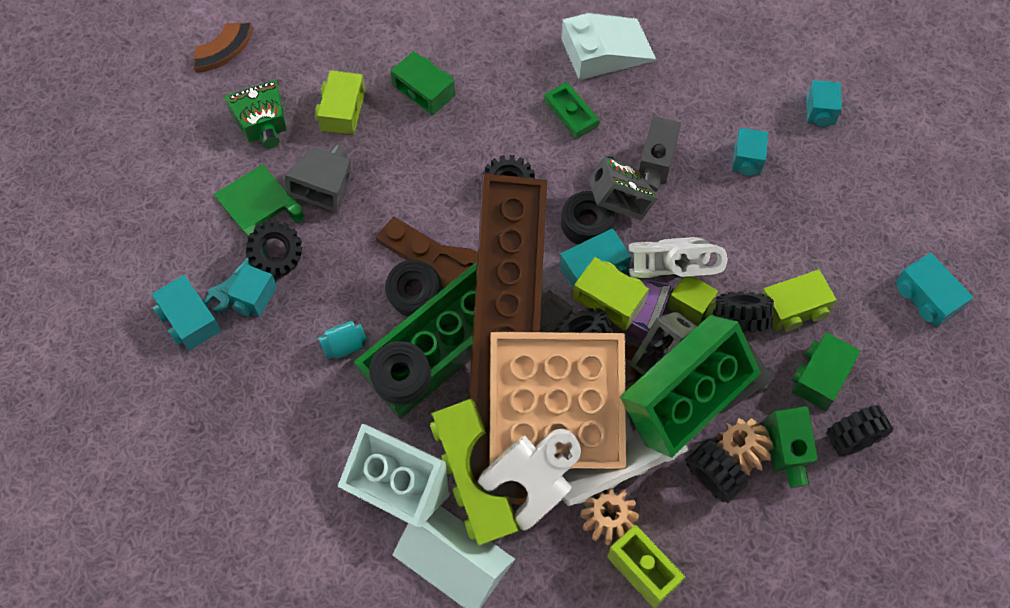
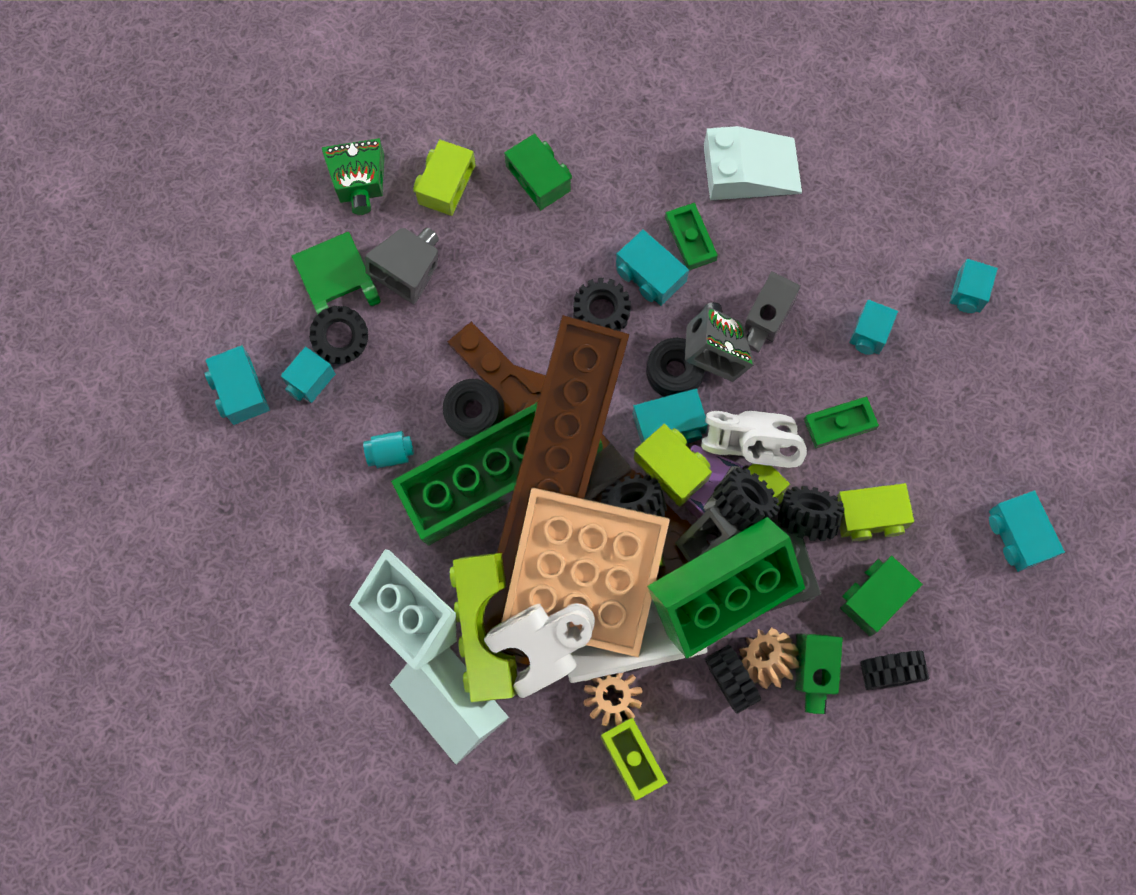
camera: 15 degrees right, 10 degrees up
(220, 292) = (277, 367): teal piece -> none
(223, 48) = (335, 84): dark orange tile -> none
(394, 355) = (422, 490): black tyre -> none
(544, 141) = (651, 268): none -> teal brick
(683, 306) = (745, 498): none -> black tyre
(746, 234) = (841, 422): none -> green plate

